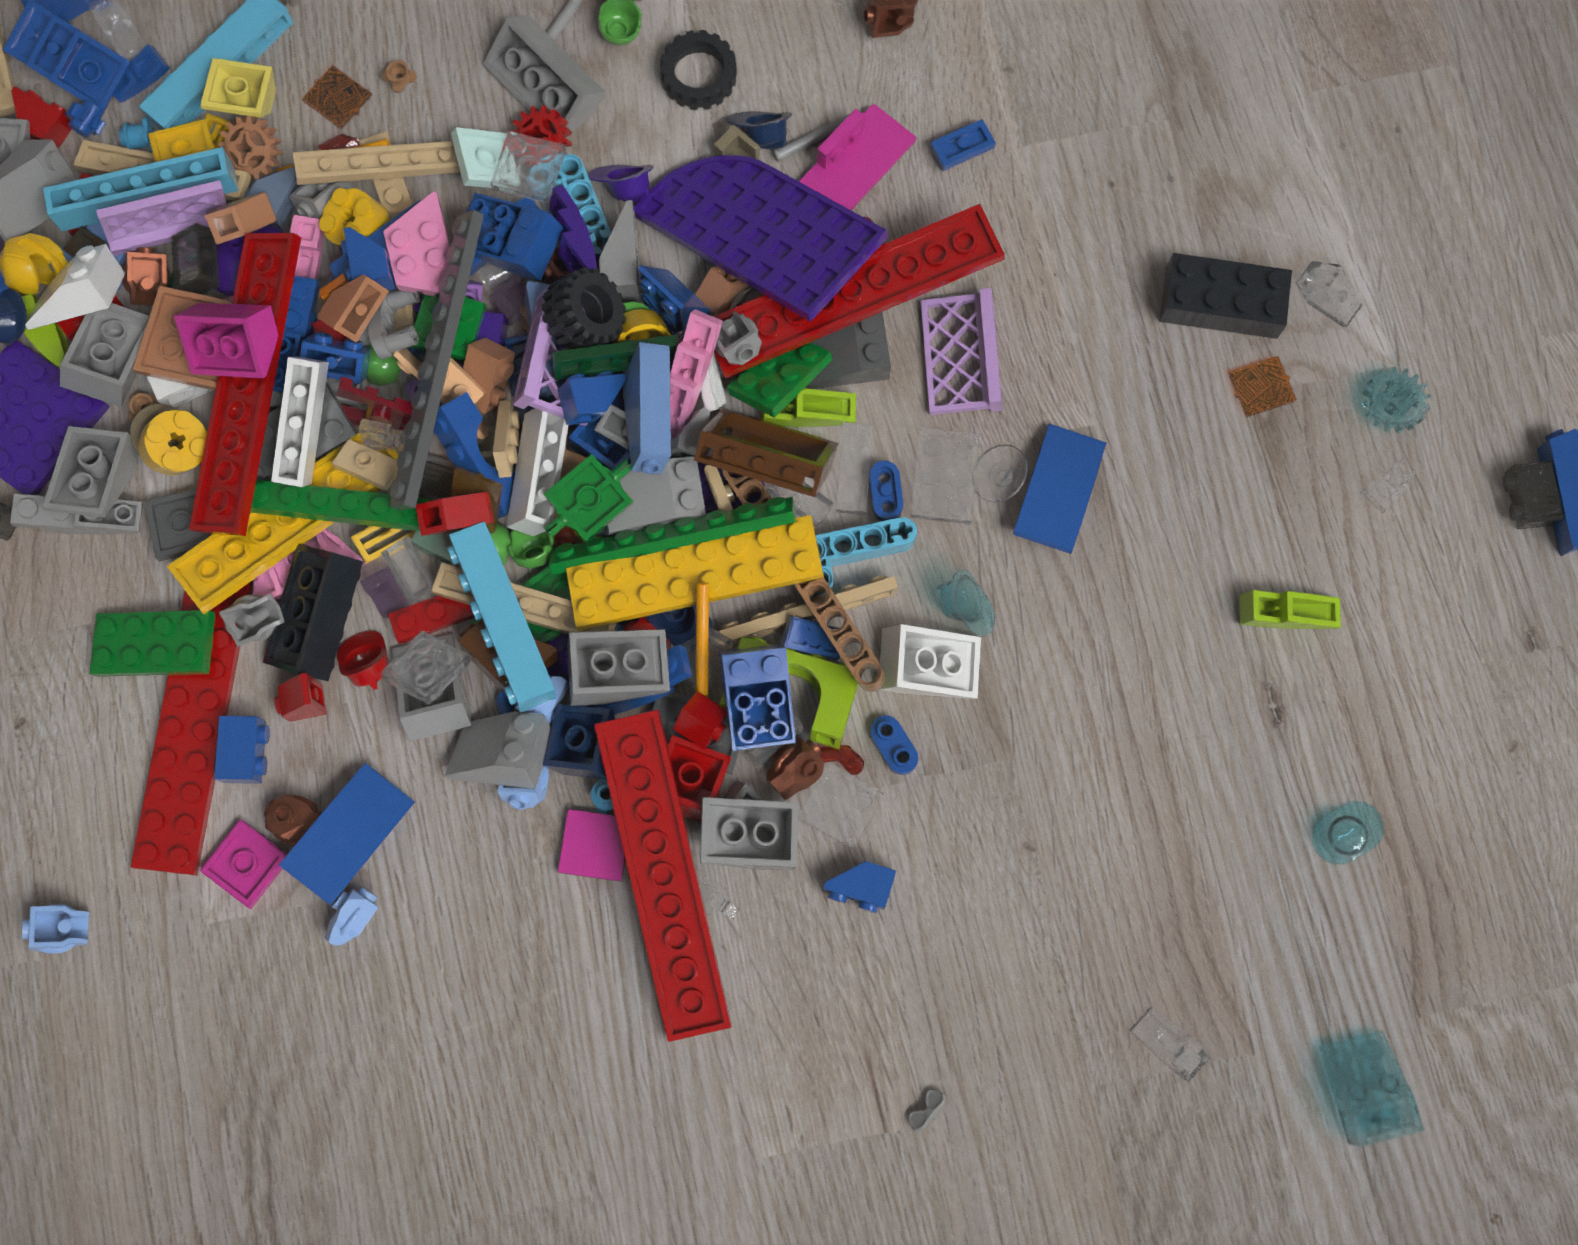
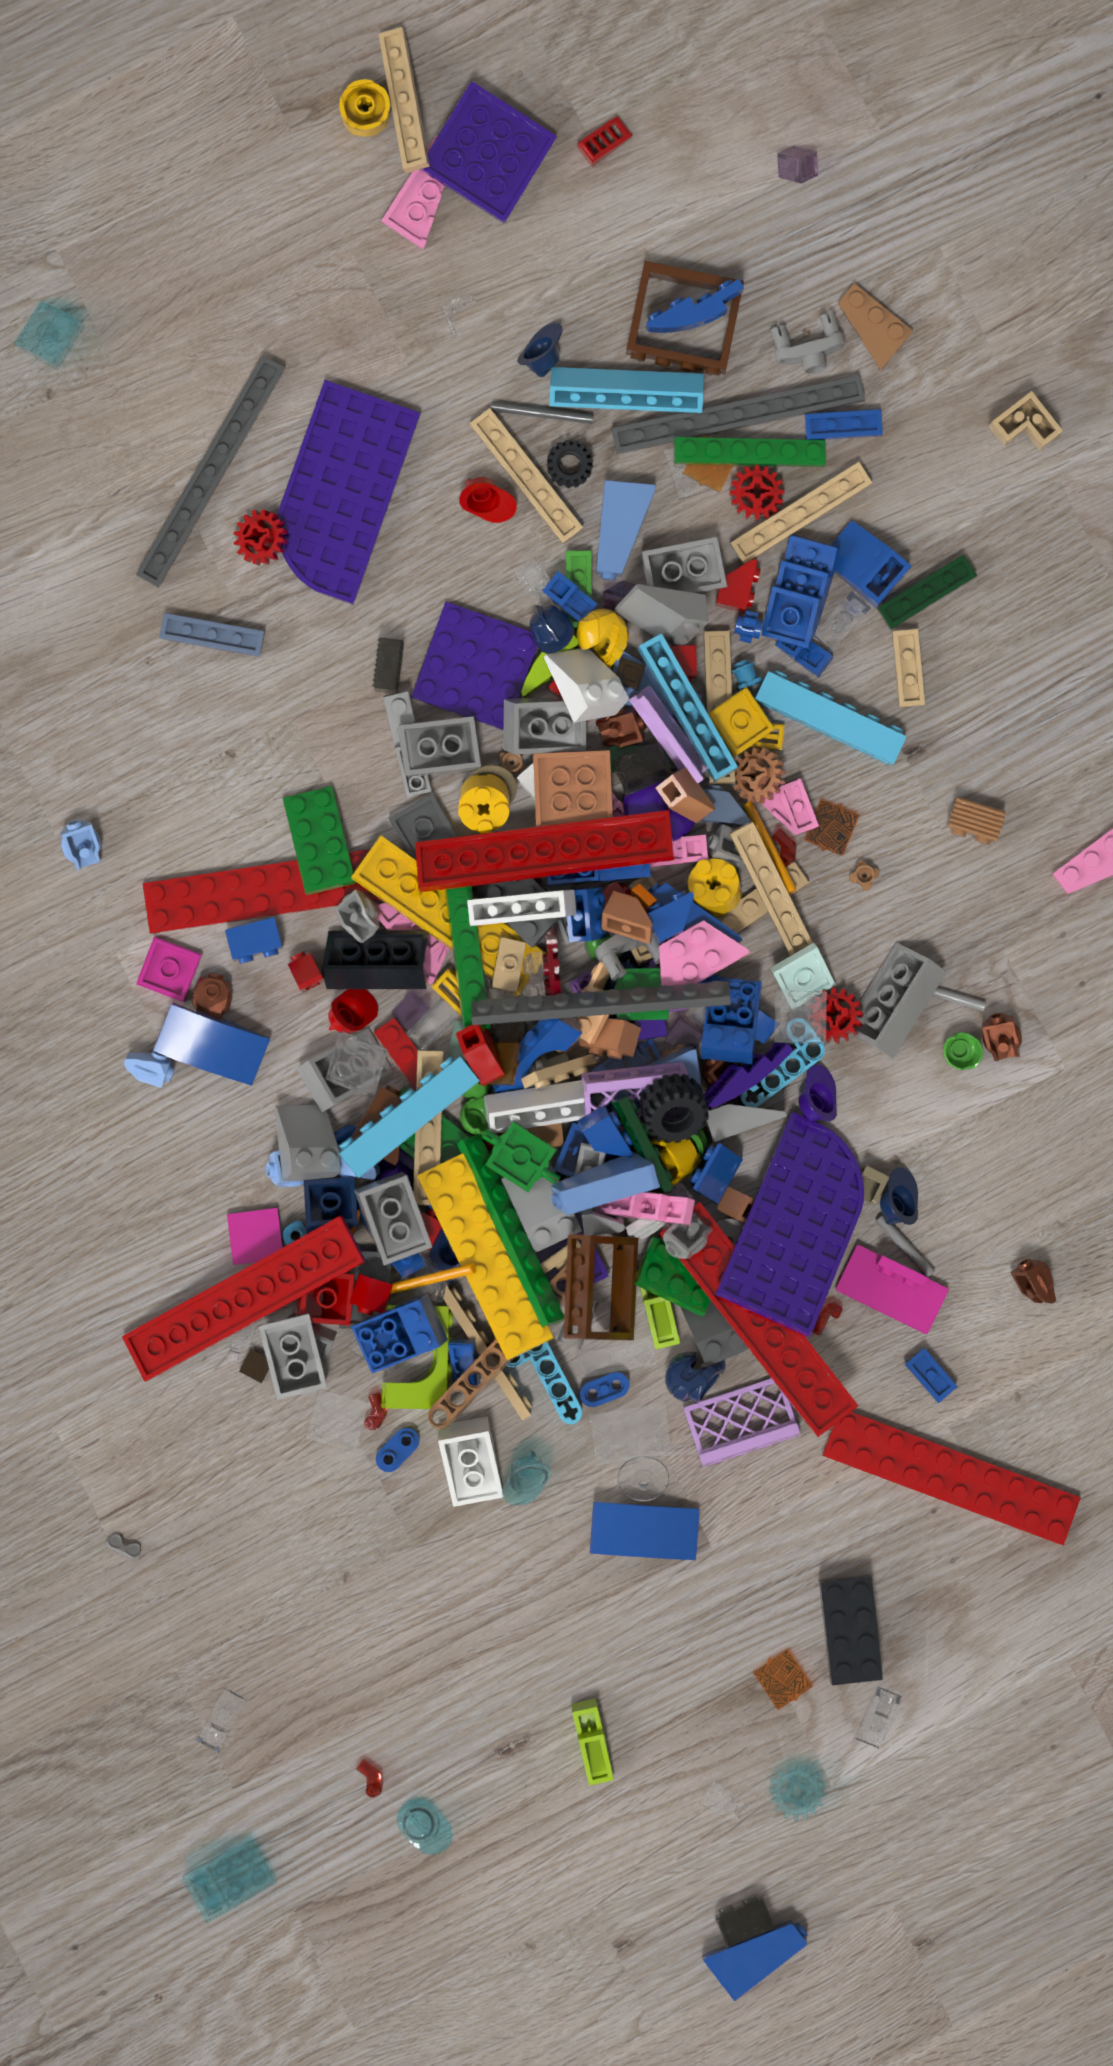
camera: 70 degrees right, 10 degrees up
(228, 339) = (571, 830): dark pink slope -> none
(239, 88) = (803, 752): light yellow slope -> none
(300, 126) = (793, 808): none -> bright pink wing
(698, 43) = (963, 1142): black tyre -> none
(749, 886) = (255, 1366): none -> dark brown tile
(795, 767) = (355, 1377): copper hand -> none
(864, 883) = (281, 1454): blue slope -> none
(900, 394) = (687, 1383): none -> dark blue helmet
(1081, 152) = (952, 1477): none -> red plate
(1279, 877) = (373, 1779): none -> clear red arm

